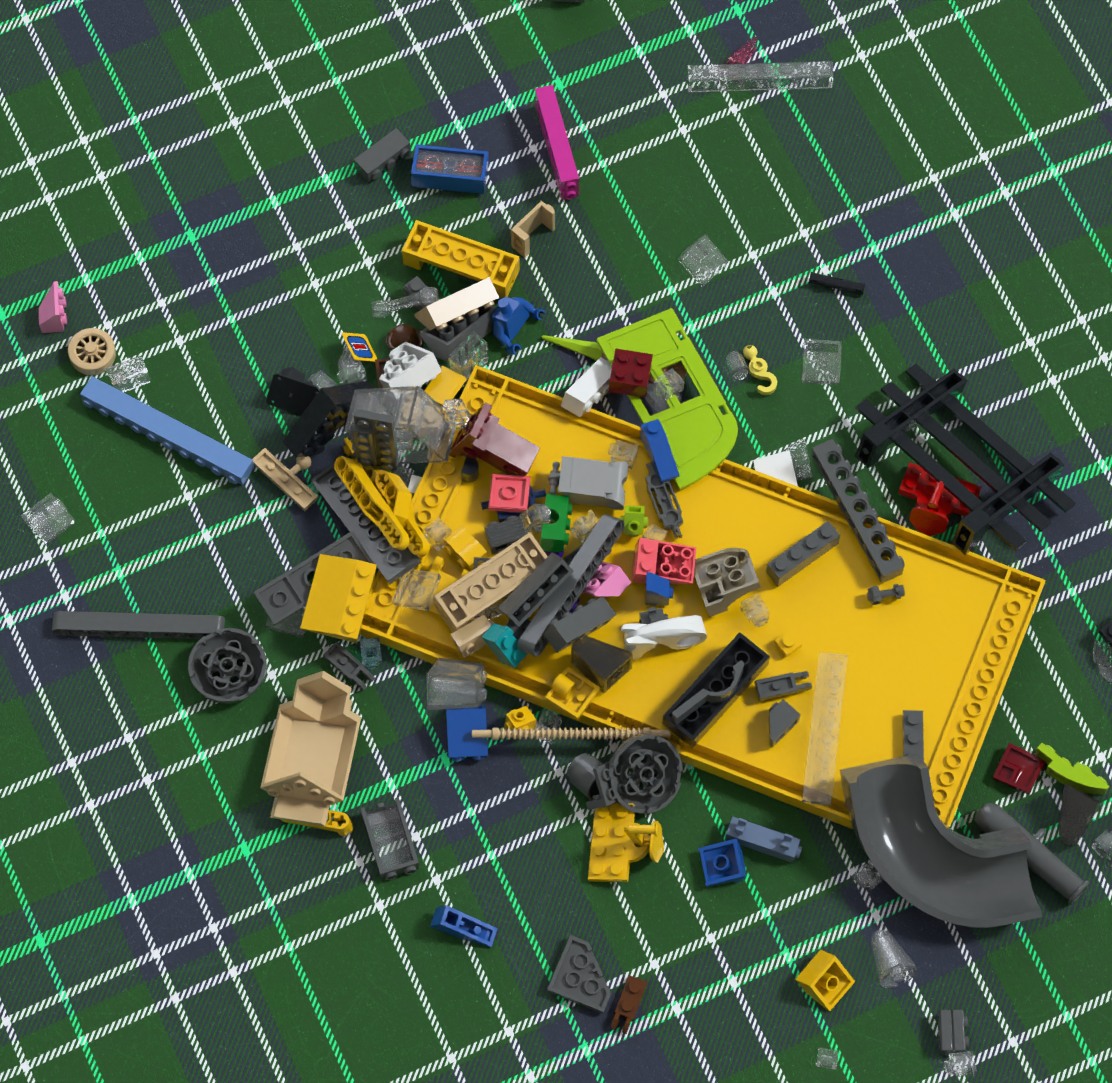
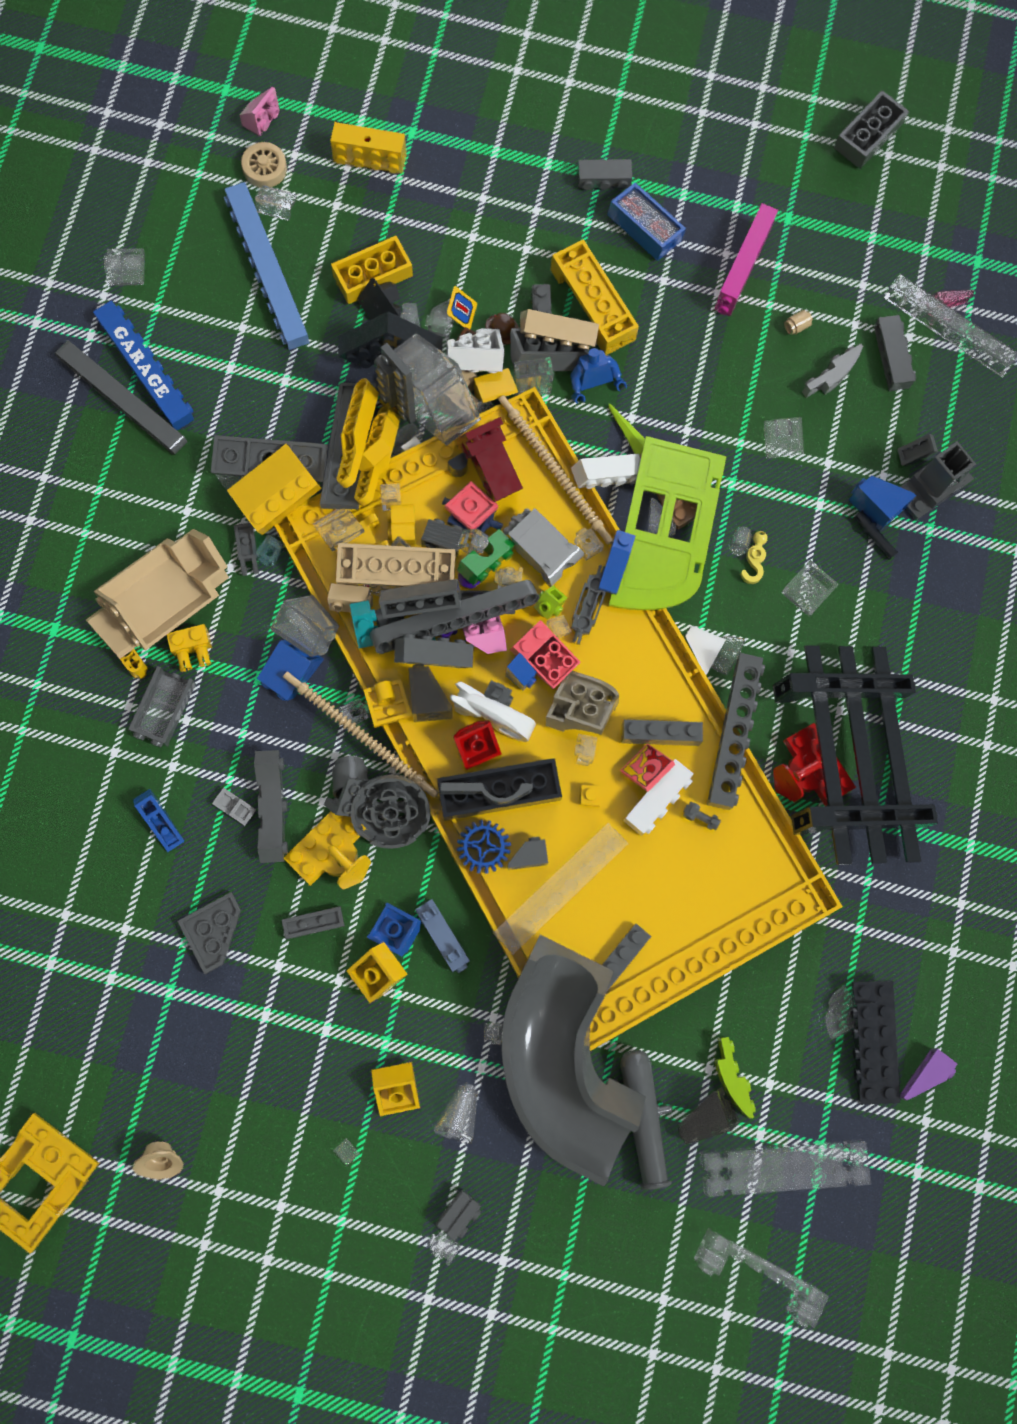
camera: 30 degrees right, 10 degrees up
(134, 585) = (143, 365): none -> blue brick
(172, 274) = (368, 147): none -> yellow brick
(235, 646) = (142, 462): dark grey brick -> none
(254, 374) = (381, 261): none -> yellow brick
(285, 478) = (322, 368): tan plate -> none
(366, 772) = (190, 641): none -> yellow brick
(382, 308) = (505, 292): clear piece -> none
(455, 413) = (479, 410): clear brick -> none
(515, 871) = (234, 806): none -> light grey slope
(520, 232) = (670, 308): tan panel -> none
(520, 718) = (335, 692): yellow brick -> none
(545, 845) = (271, 806): none -> dark grey brick
(618, 434) = (597, 525): none -> tan hose
(629, 1002) = (232, 981): reddish brown hinge -> none
(630, 373) = (647, 482): dark red brick -> none
(638, 161) = (798, 322): none -> tan brick
(654, 908) = (313, 923): none -> dark grey plate
(668, 384) = (673, 511): clear brick -> none
(670, 668) = (476, 743): none -> red slope
(700, 179) = (836, 372): none -> light grey slope
(733, 130) = (894, 353): none -> dark grey brick
(737, 902) = (376, 972): none -> yellow brick
(753, 734) = (474, 844): none -> blue gear
(781, 685) = (555, 825): dark grey hinge -> none
(814, 587) = (647, 767): none -> tile
(815, 193) = (917, 450): none -> dark grey tile
(818, 253) = (880, 500): none -> blue slope
(842, 604) = (657, 799): none -> white brick
(850, 207) = (939, 480): none -> dark grey brick
(1019, 769) = (693, 1042): dark red plate -> none

